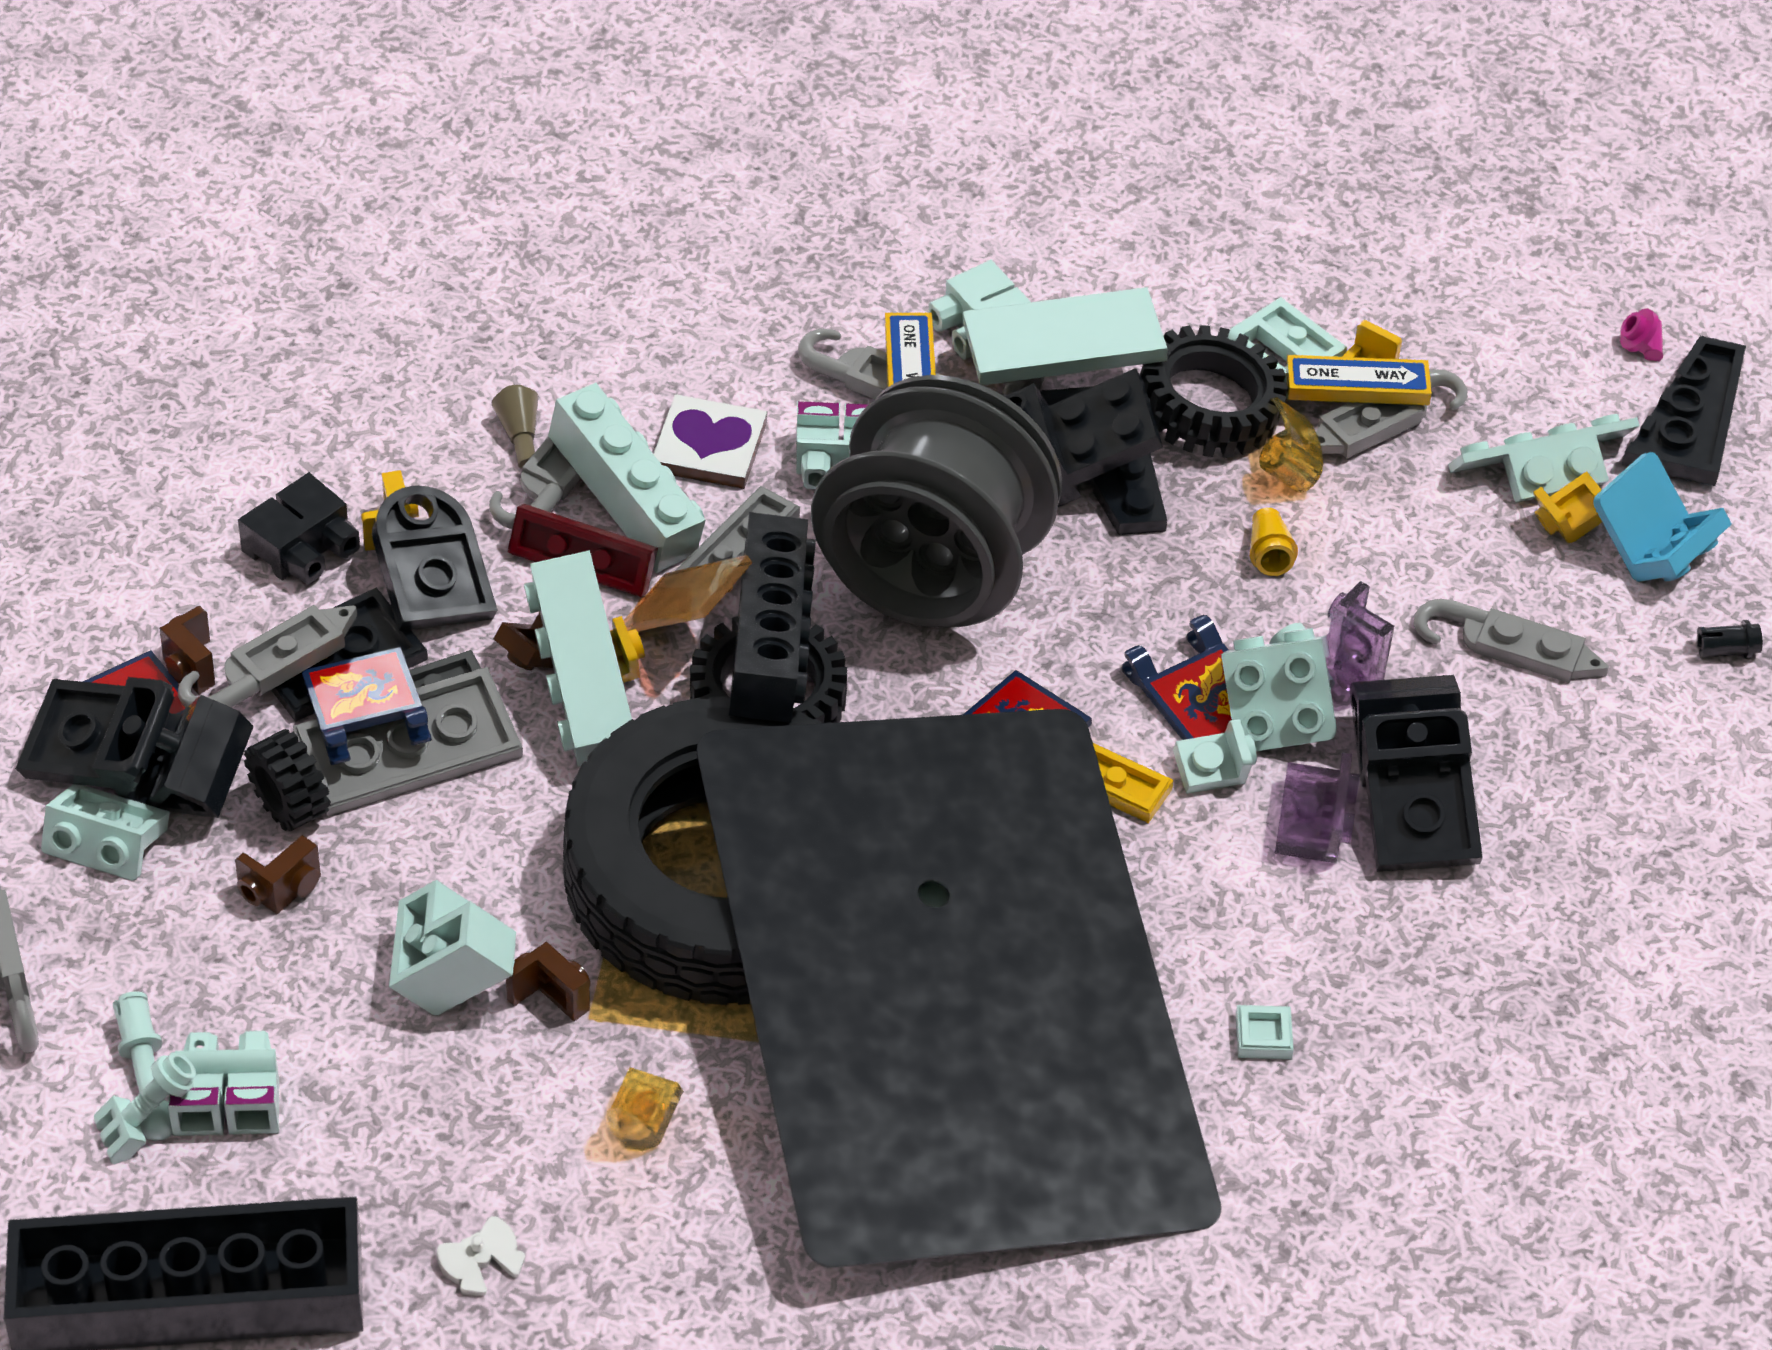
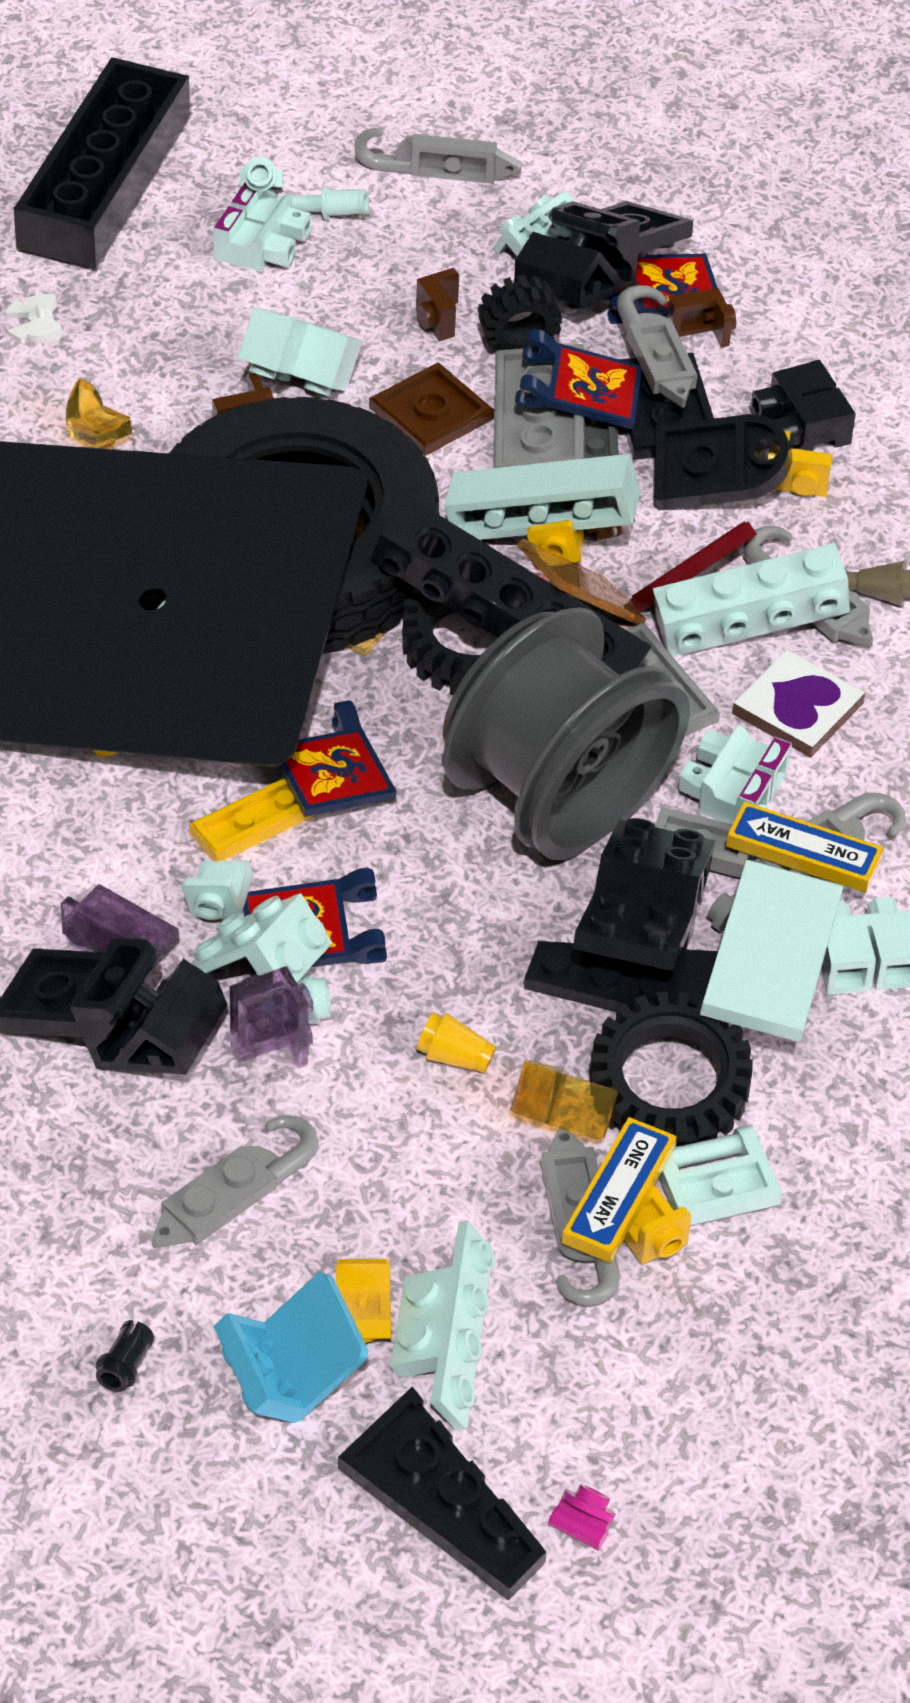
camera: 115 degrees right, 0 degrees up
(443, 838) = (432, 408): none -> reddish brown tile

